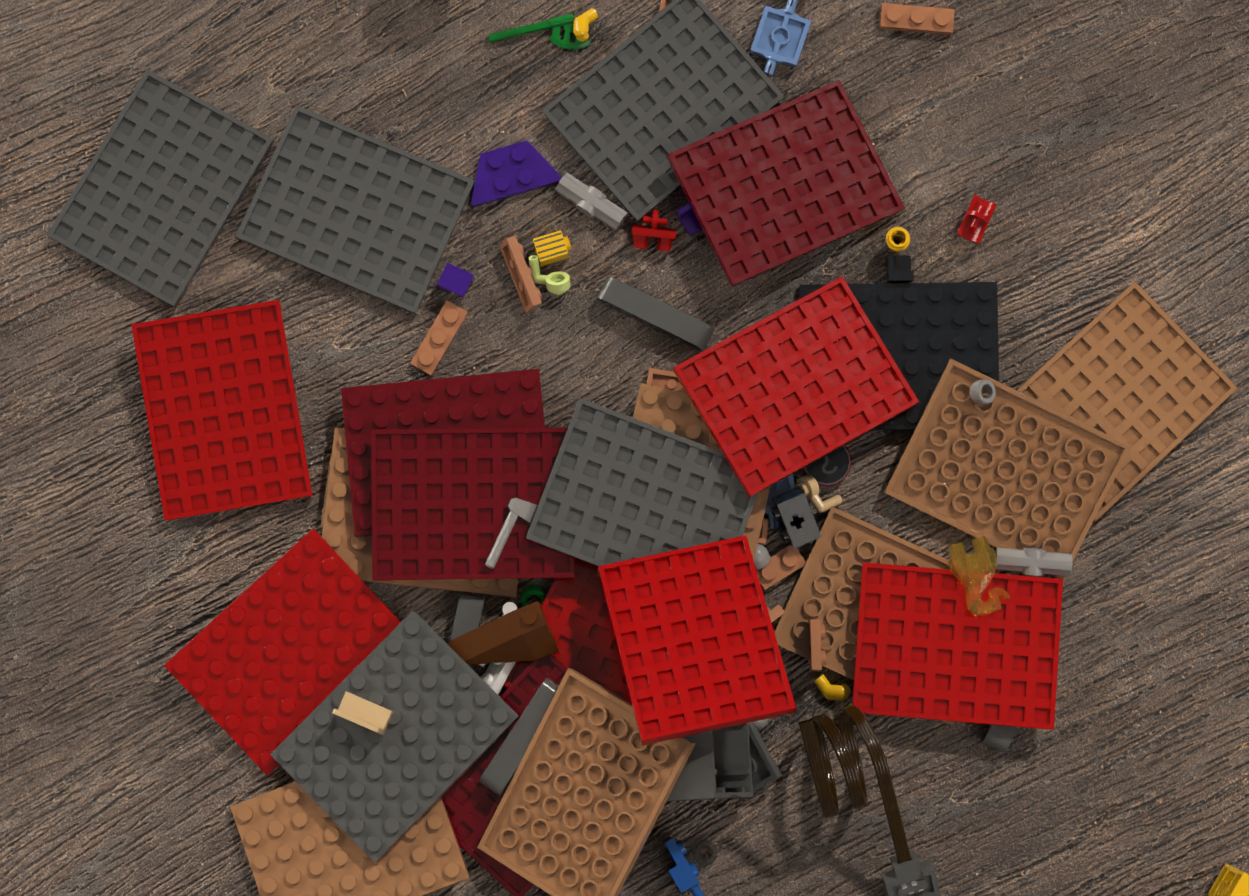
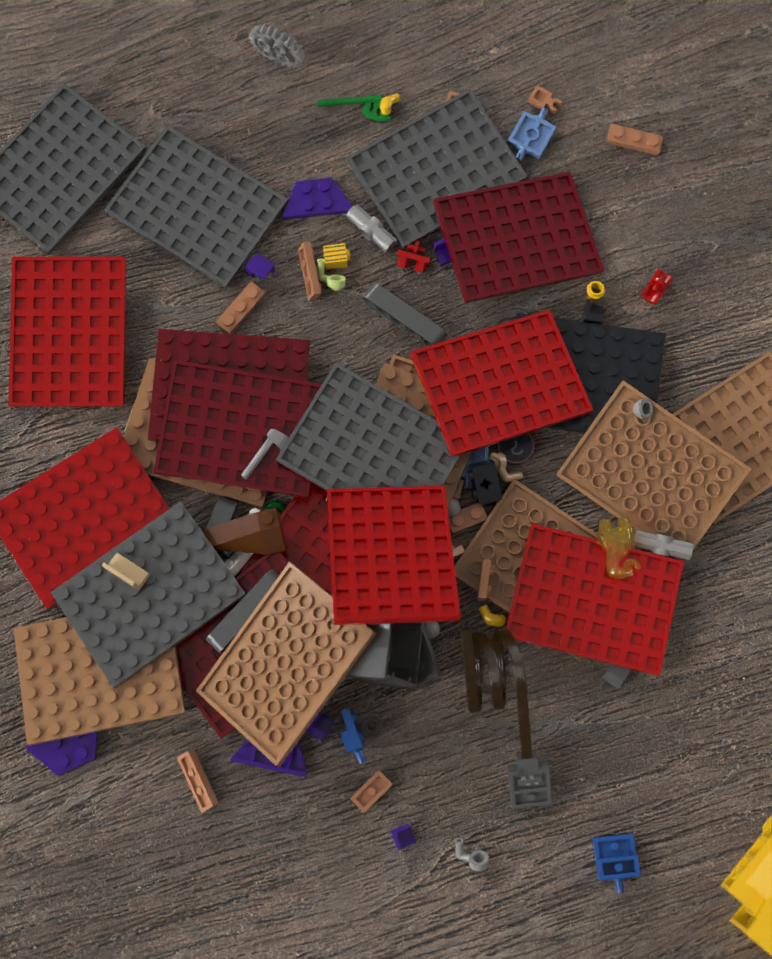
camera: 10 degrees right, 5 degrees down
(643, 865) = (320, 726): none -> dark purple panel

